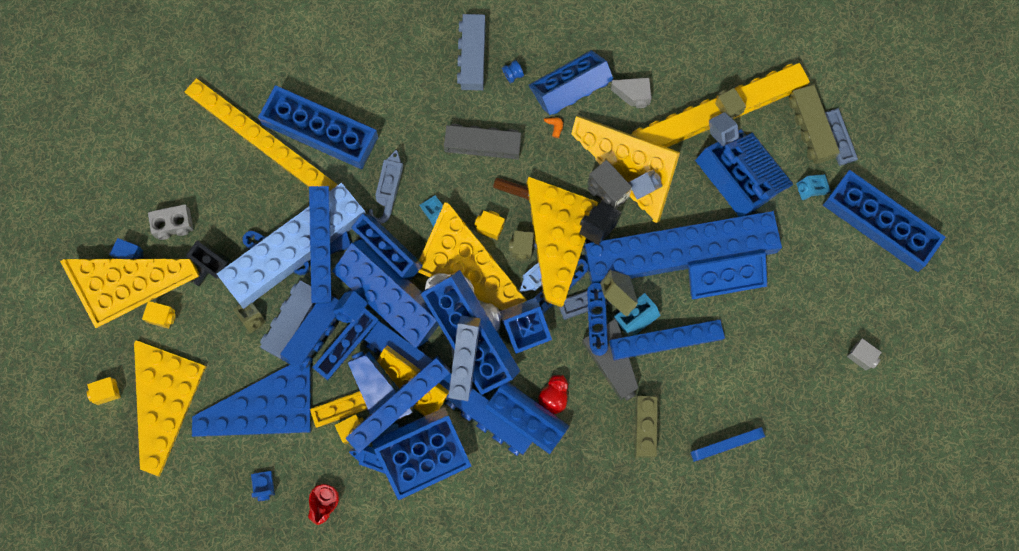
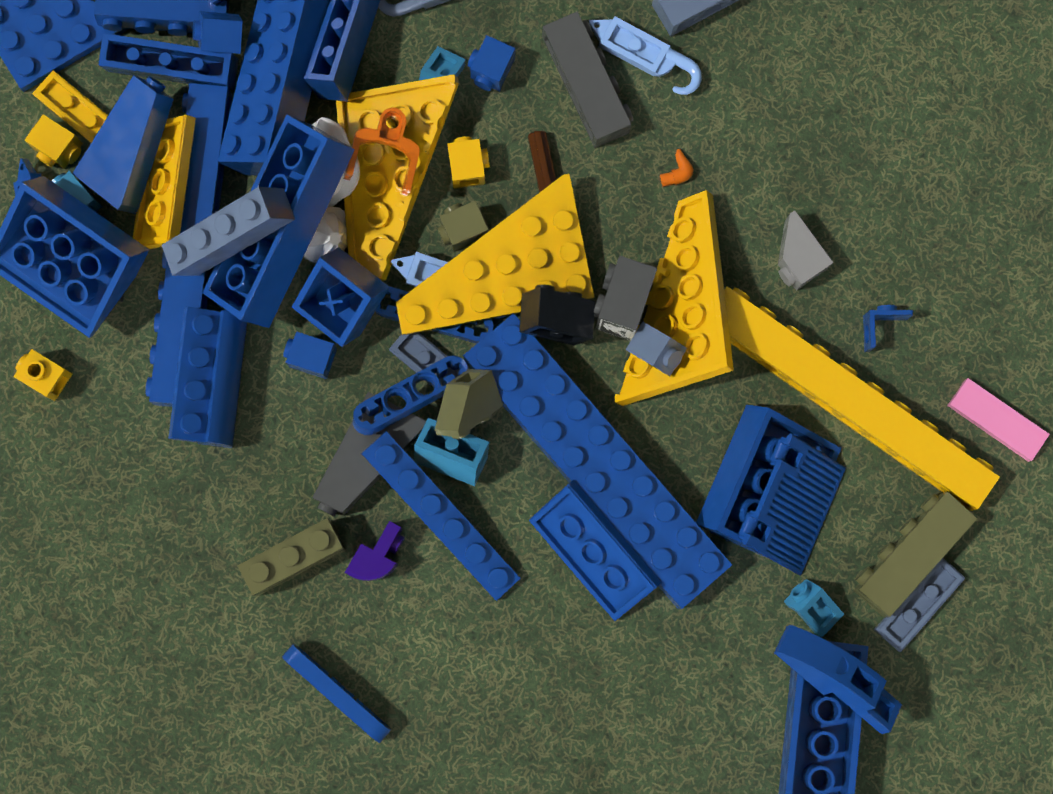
camera: 55 degrees right, 5 degrees up
(397, 404) = (112, 179): blue brick -> none
(445, 183) = (491, 64): none -> blue brick
(460, 250) = (389, 137): none -> orange piece
(473, 504) = (42, 374): none -> yellow brick
(484, 106) = (644, 51): none -> light blue plate
(512, 71) = (722, 60): blue wheel -> none
(545, 359) = (310, 354): none -> blue brick
(554, 395) = (267, 400): red hair -> none
(571, 82) = (758, 155): blue slope -> none
(672, 387) = (374, 564): none -> dark purple brick
(687, 78) = (883, 312): none -> blue bracket
(723, 129) = (816, 418): sand blue brick -> none
(730, 103) = (862, 405): olive brick -> none
(769, 48) = (998, 420): none -> bright pink tile
(857, 188) = (839, 673): none -> blue slope

